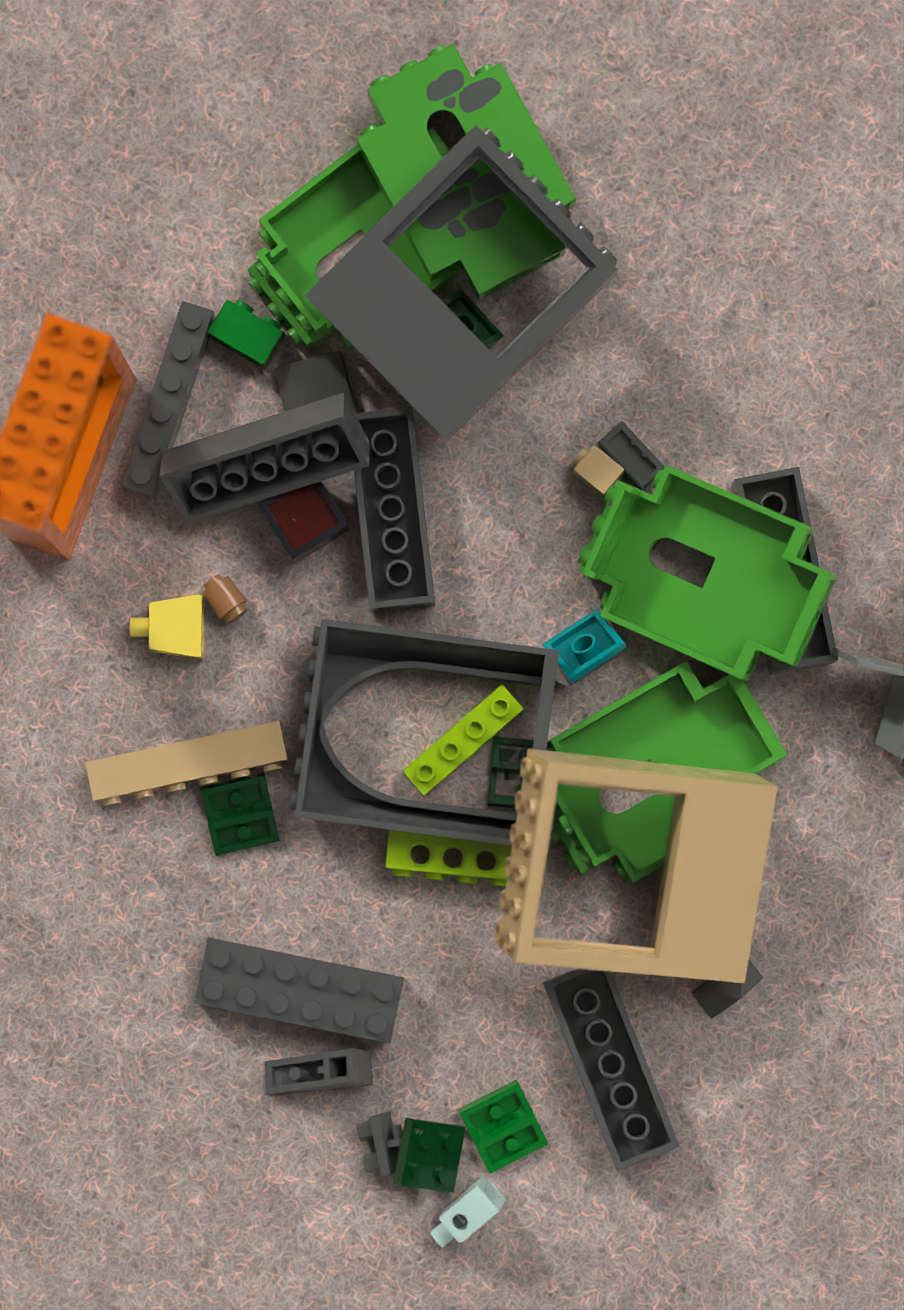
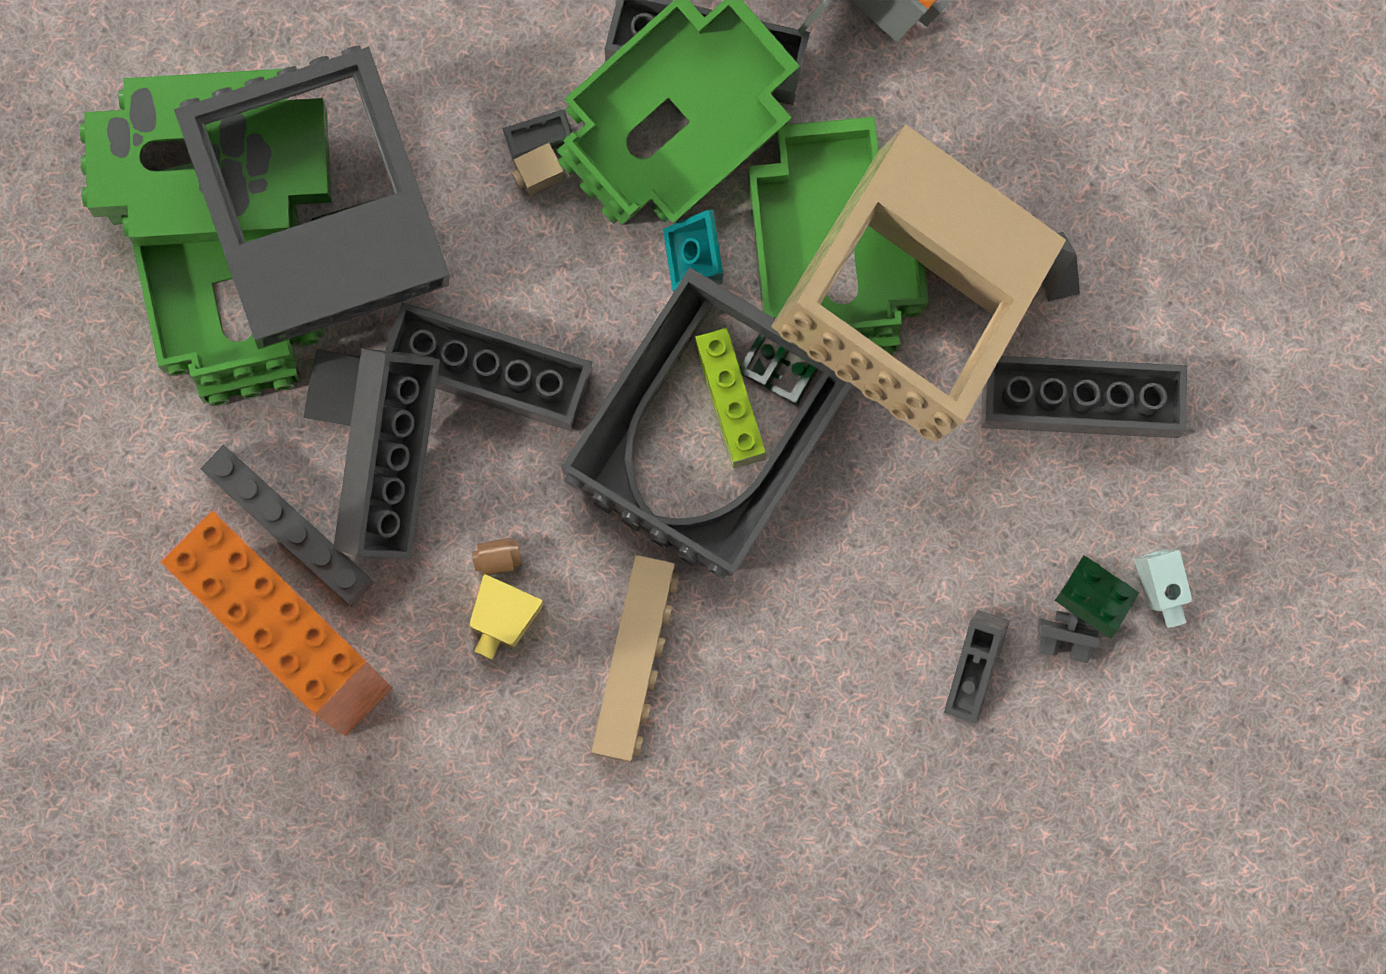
camera: 70 degrees left, 5 degrees down
(239, 814) = (703, 633): dark green slope -> none
(246, 333) = (258, 426): green brick -> none
(299, 990) = (893, 648): dark grey brick -> none
(304, 519) = (458, 450): clear red piece -> none
(401, 844) = (799, 496): lime brick -> none
(503, 1126) = (1097, 521): green slope -> none

